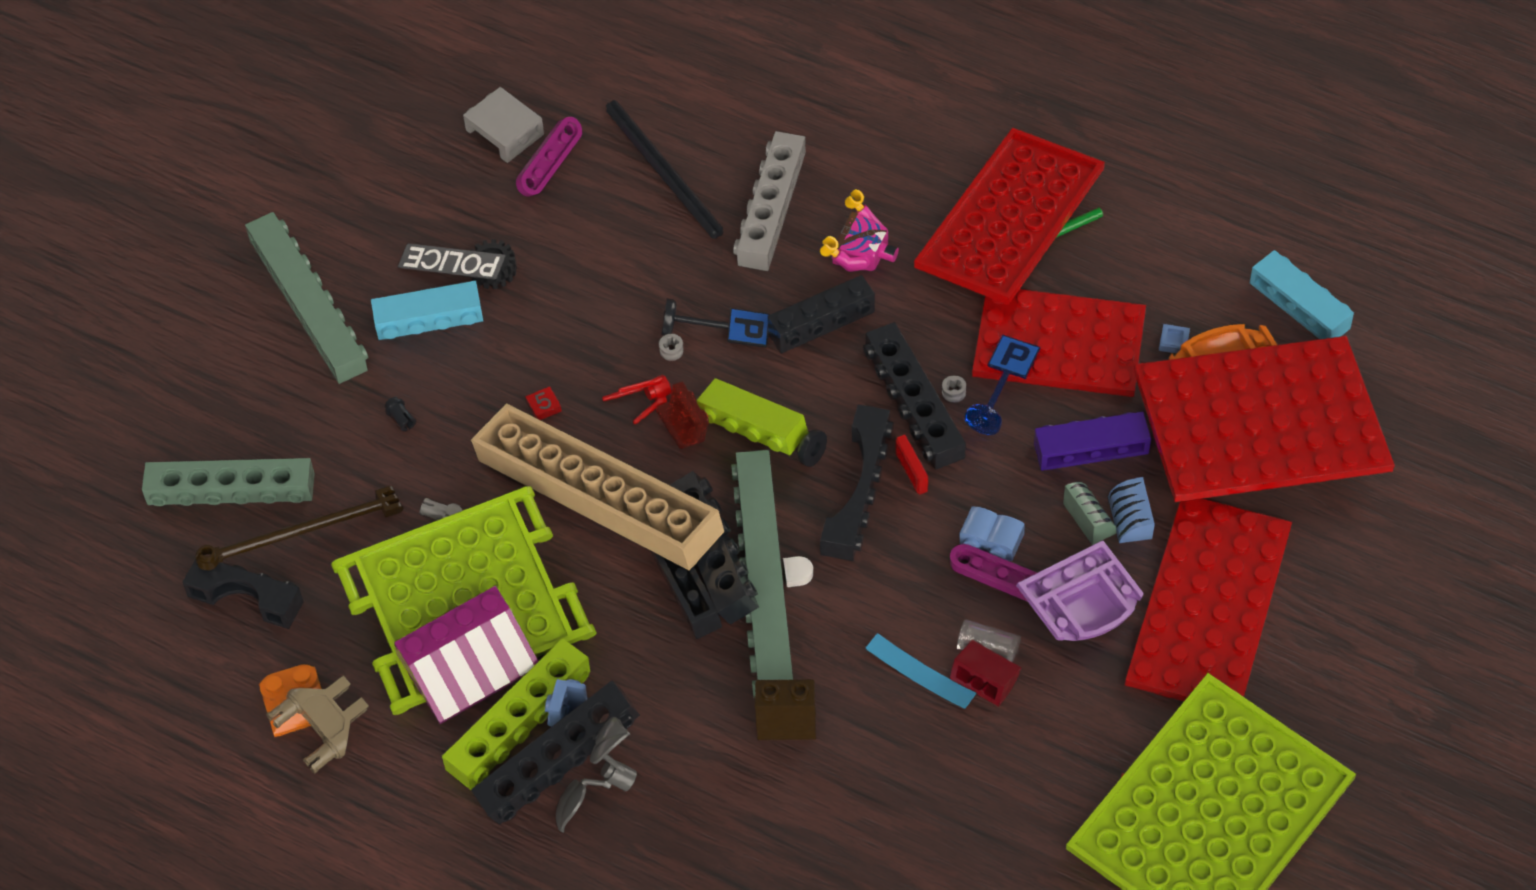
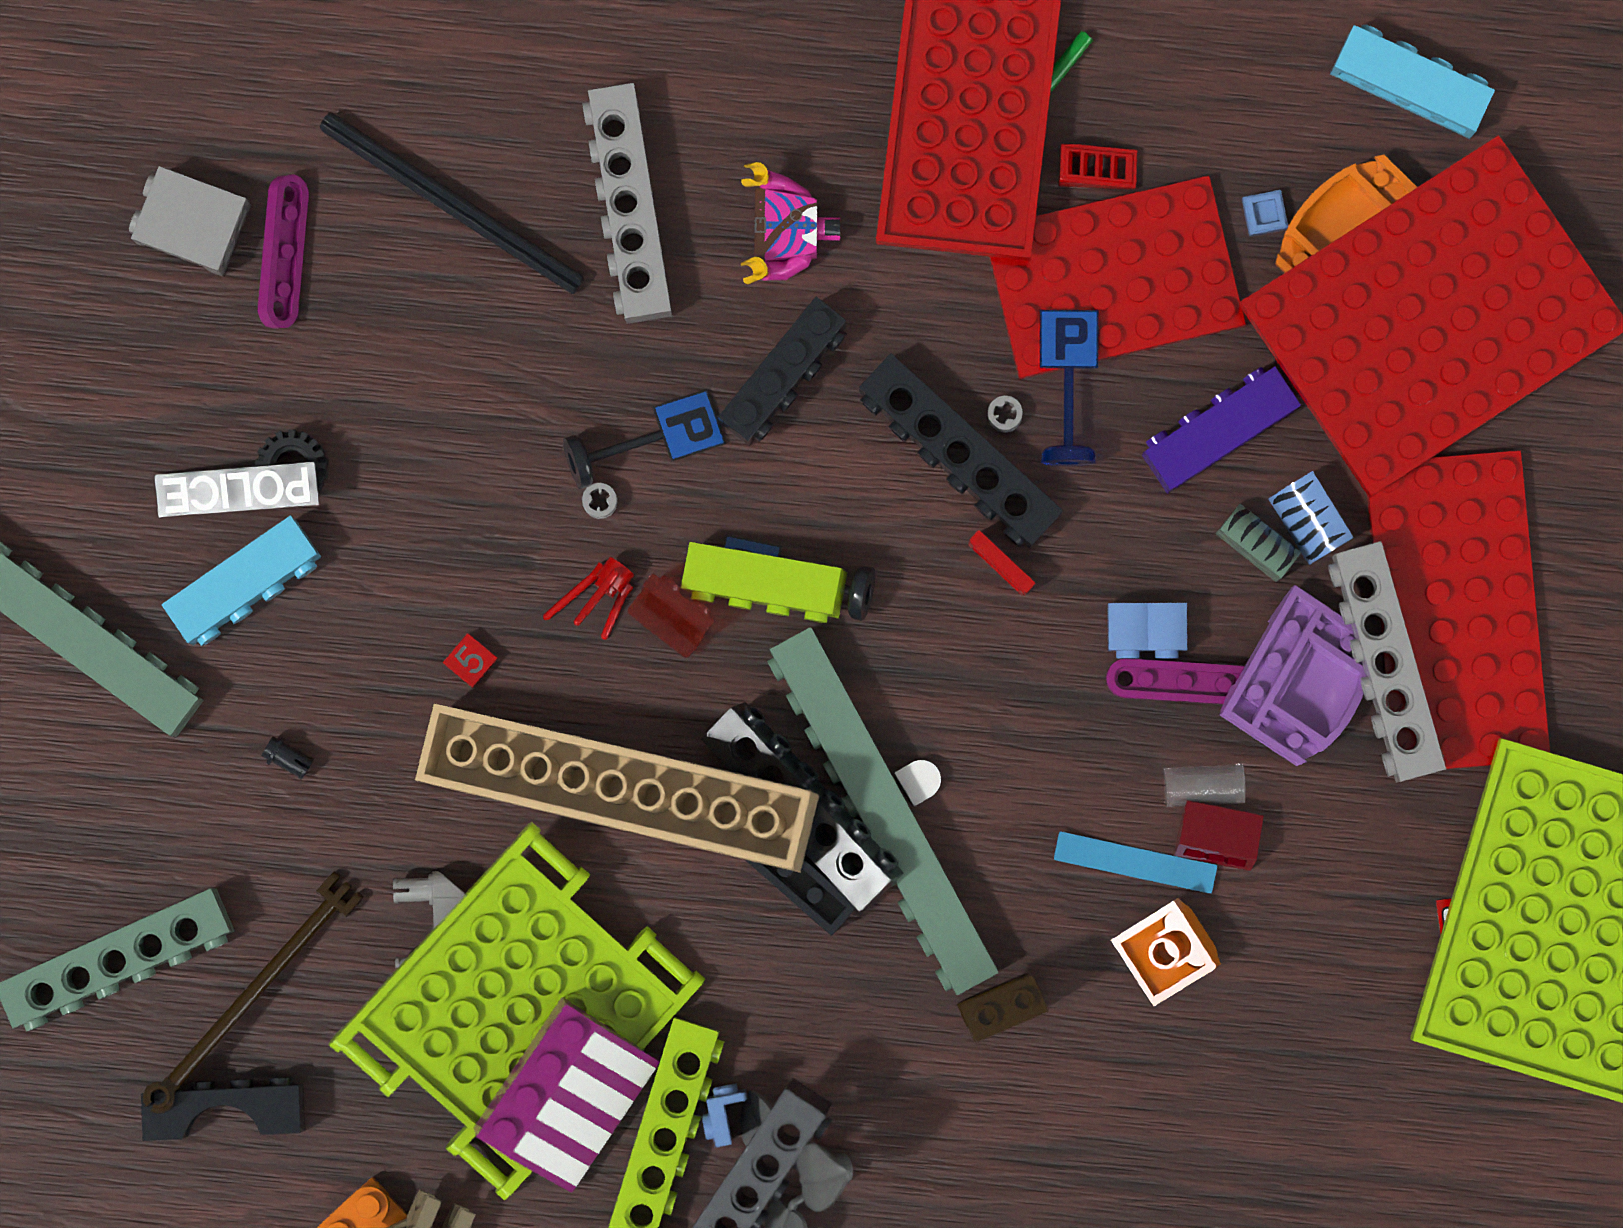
camera: 25 degrees left, 30 degrees up
(842, 533) = (926, 531): black arch -> none
(917, 726) = (1167, 951): none -> orange slope
(1078, 272) = (1067, 179): none -> red slope
(1145, 667) = (1371, 563): none -> light grey brick

